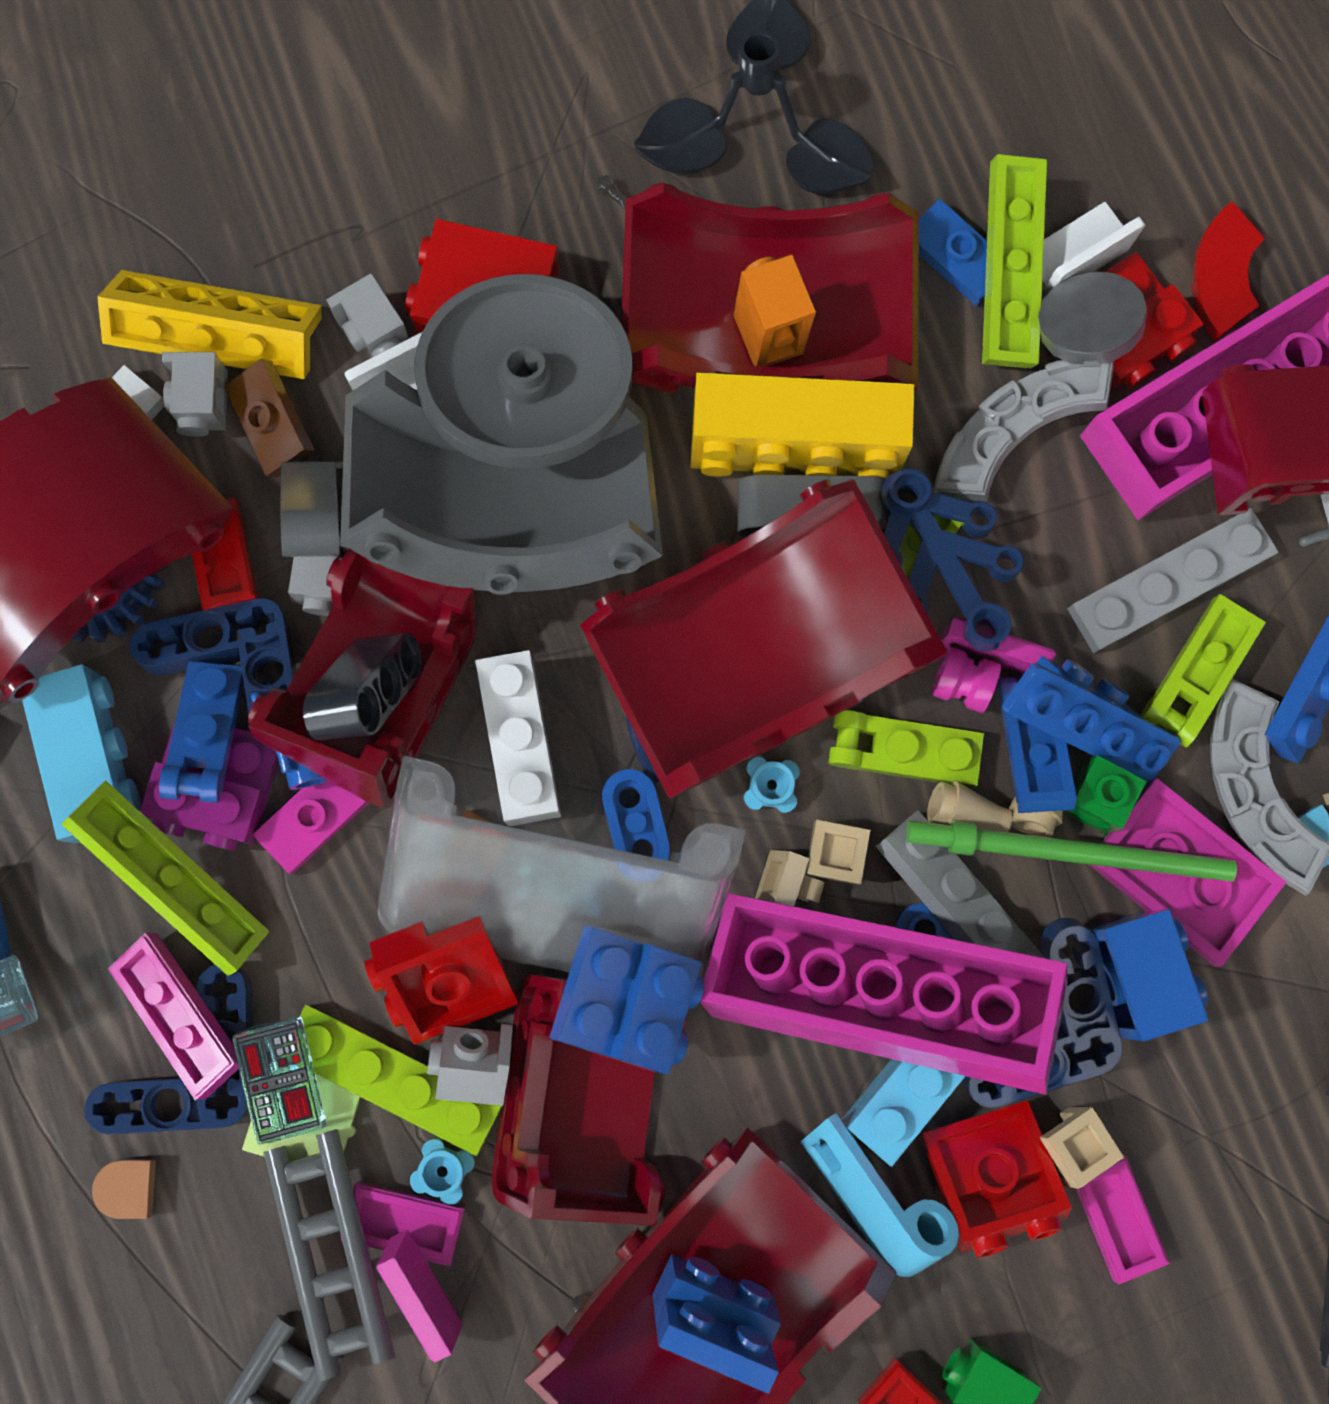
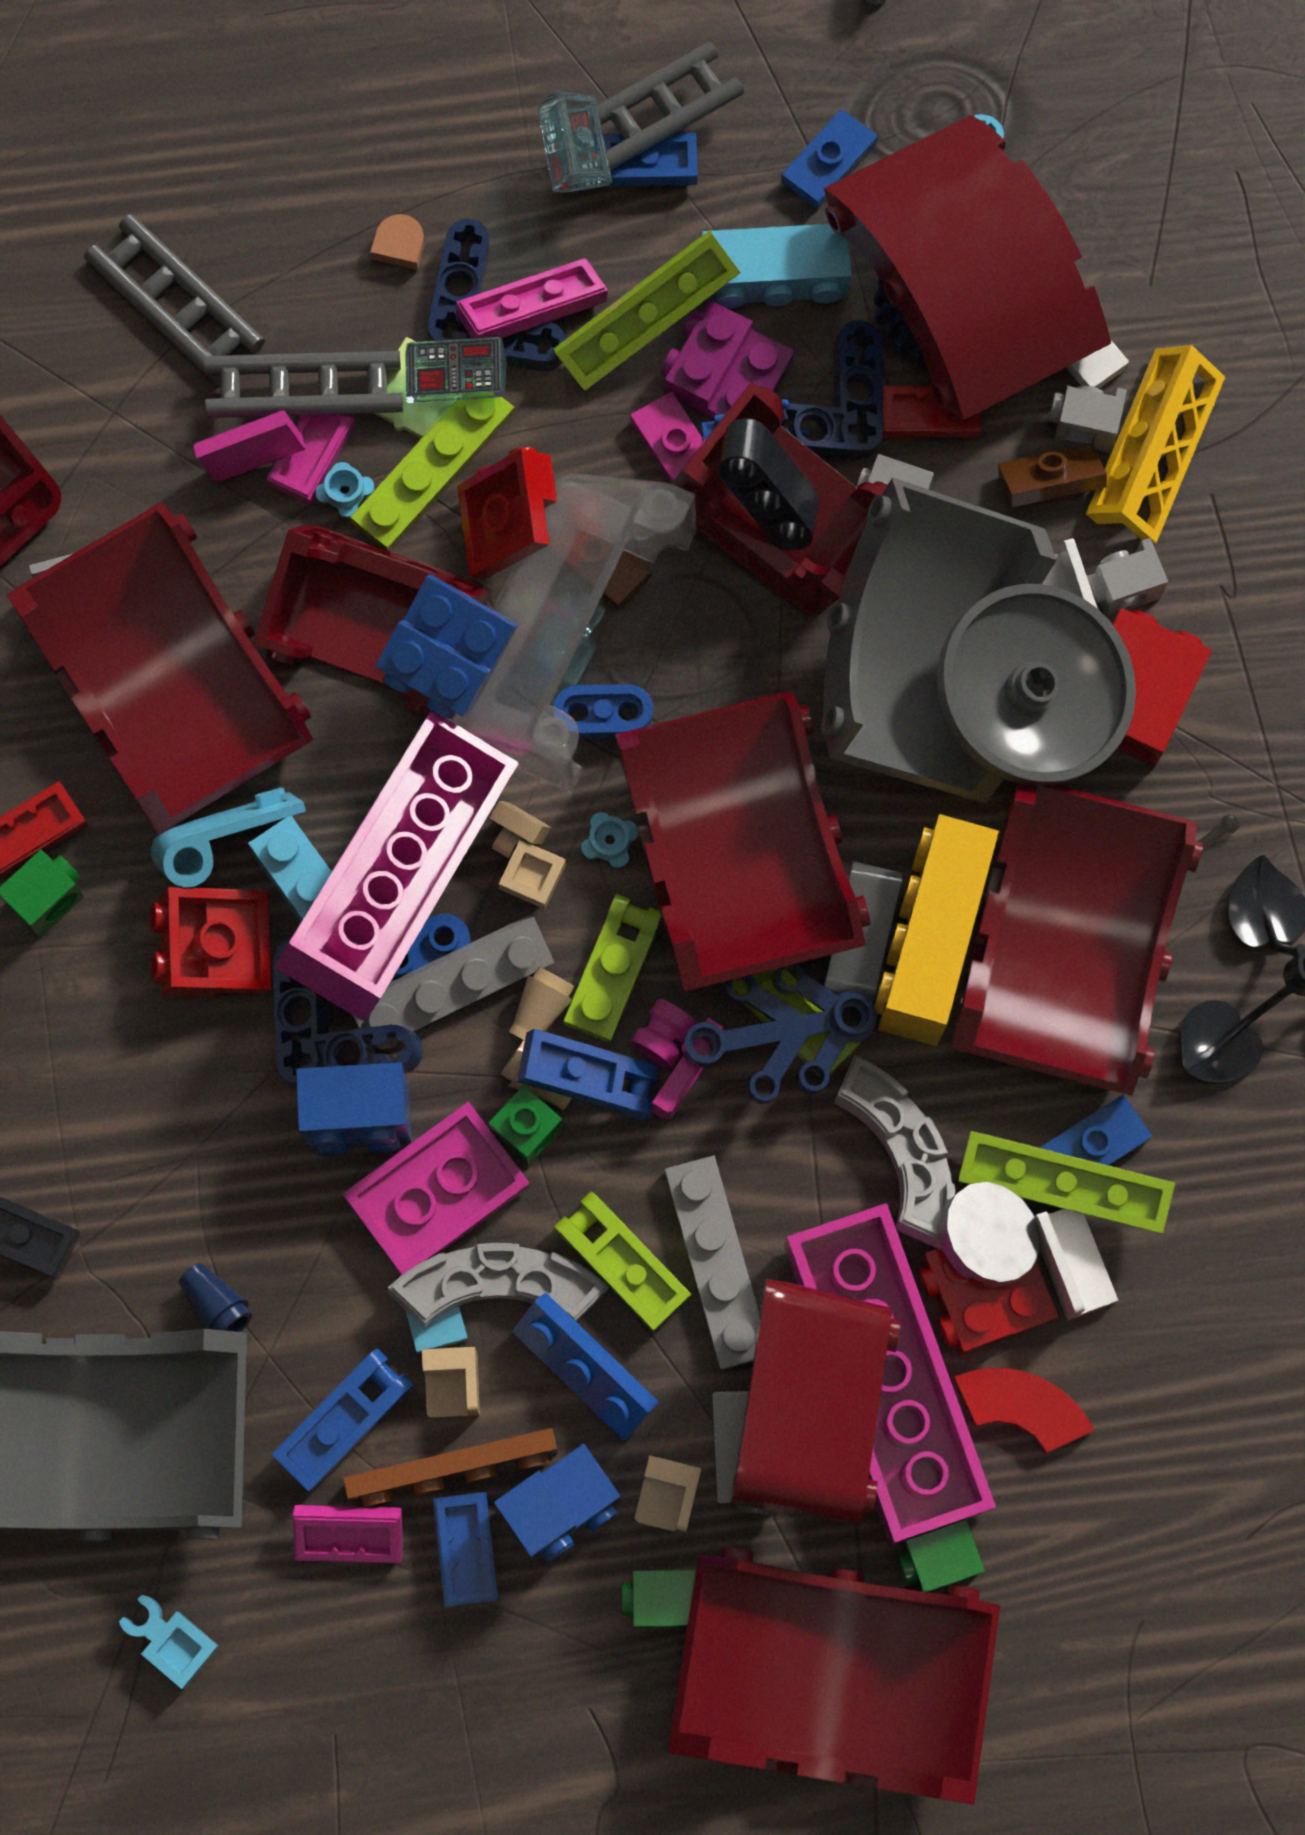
camera: 105 degrees right, 5 degrees down
(203, 732) = (768, 362): blue plate -> none
(309, 509) = (950, 473): dark grey beam -> none
(471, 1064) = (427, 525): light grey brick -> none
(518, 738) = (702, 625): white brick -> none
(717, 1321) = (163, 666): blue plate -> none
(773, 310) = (1054, 927): orange brick -> none
(965, 839) = (515, 985): bright green bar -> none
(1080, 1147) = (219, 1014): tan panel -> none
(1090, 716) = (602, 1121): blue bracket -> none
(1122, 1223) = (147, 1049): dark pink tile -> none

